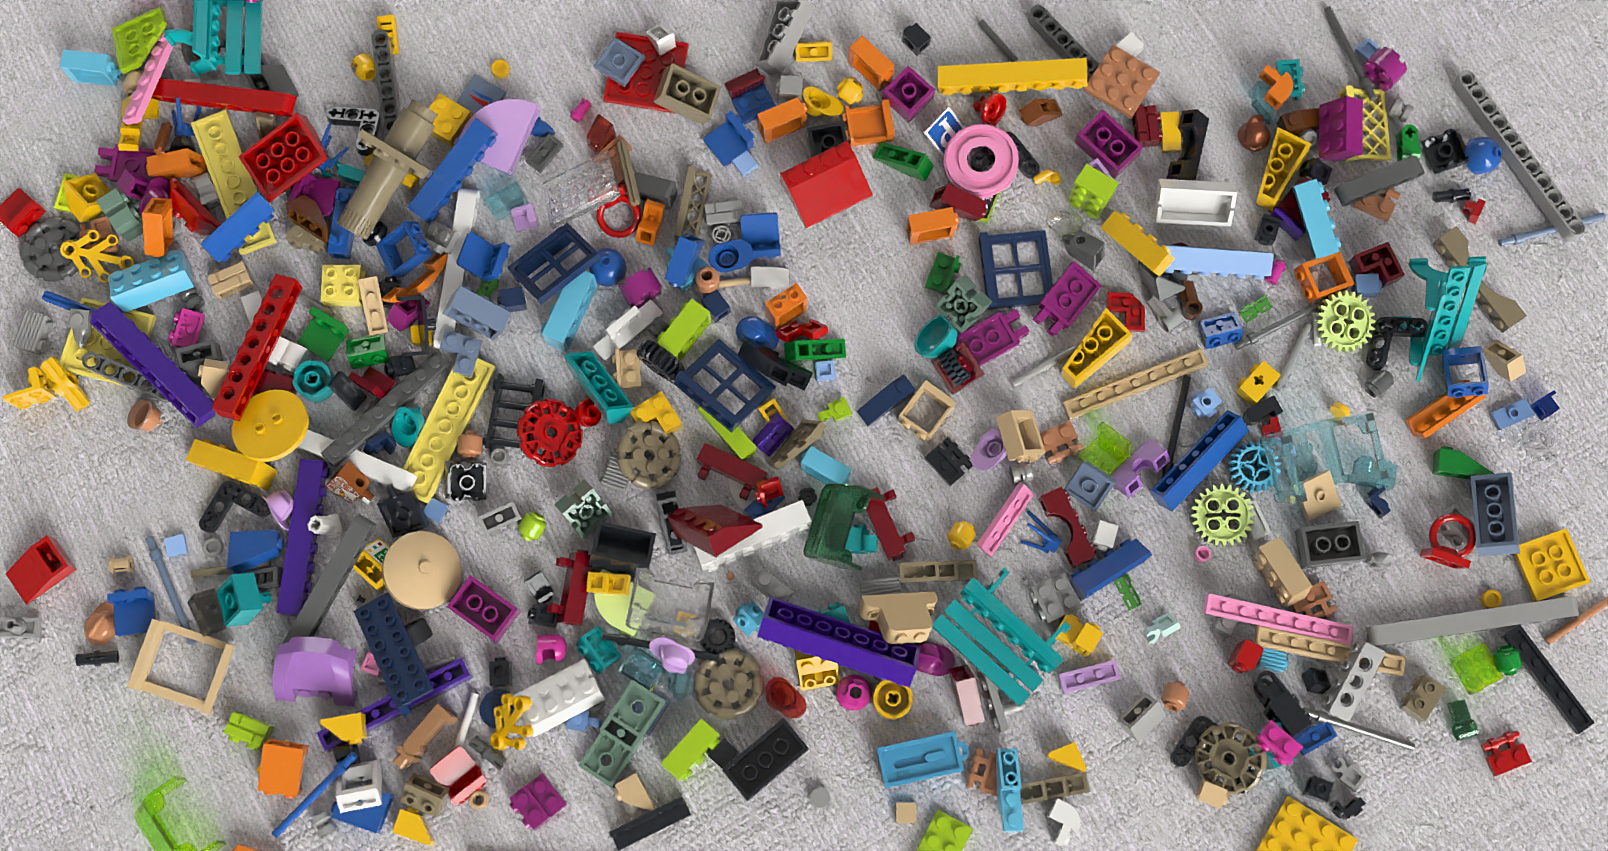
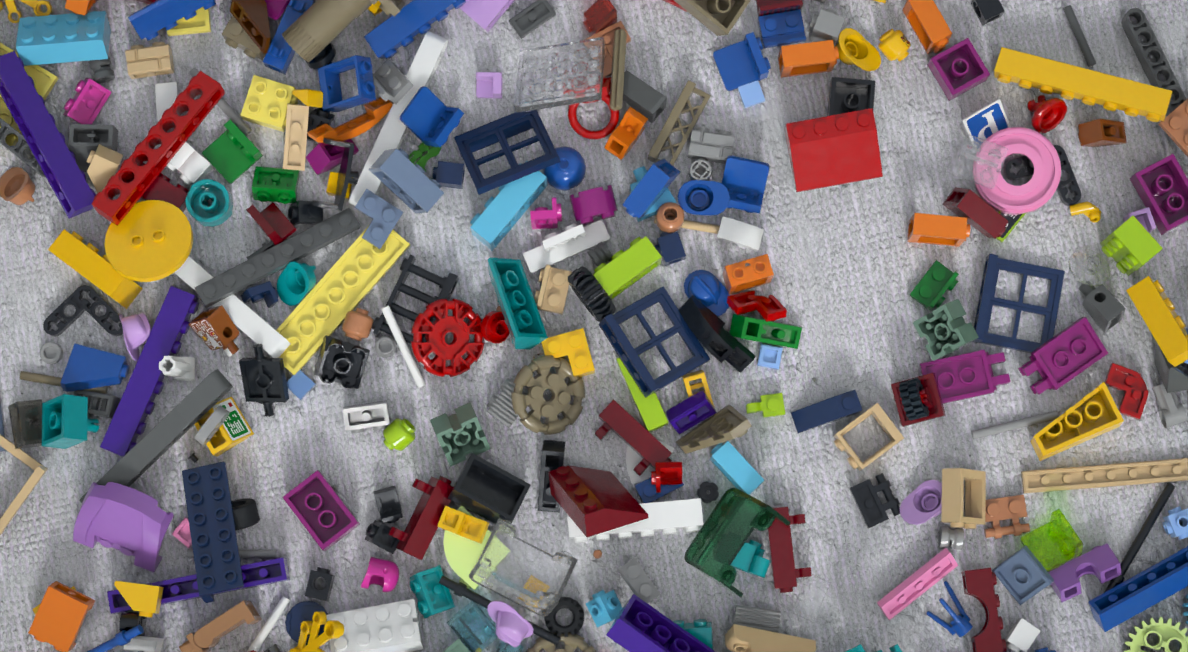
camera: 20 degrees right, 5 degrees up
(176, 546) = (12, 339): light blue tile -> none
(248, 730) = (35, 564): lime brick -> none
(347, 391) = (241, 224): black tile -> none
(368, 563) = (212, 425): none -> light grey beam
(375, 268) = (309, 97): none -> yellow slope
(421, 570) = (267, 448): tan dish -> none
(504, 200) = (474, 60): clear light blue brick -> none
(514, 451) = (403, 346): none -> white bar
(604, 310) = (546, 219): none -> dark pink bracket
(869, 124) = (903, 90): orange panel -> none
(904, 160) = (930, 144): green slope -> none
(935, 337) = (903, 358): teal cylinder -> none
(937, 571) = (826, 619): dark tan slope -> none
(949, 160) = (980, 161): none -> clear bracket
(961, 535) = (863, 587): yellow head -> none

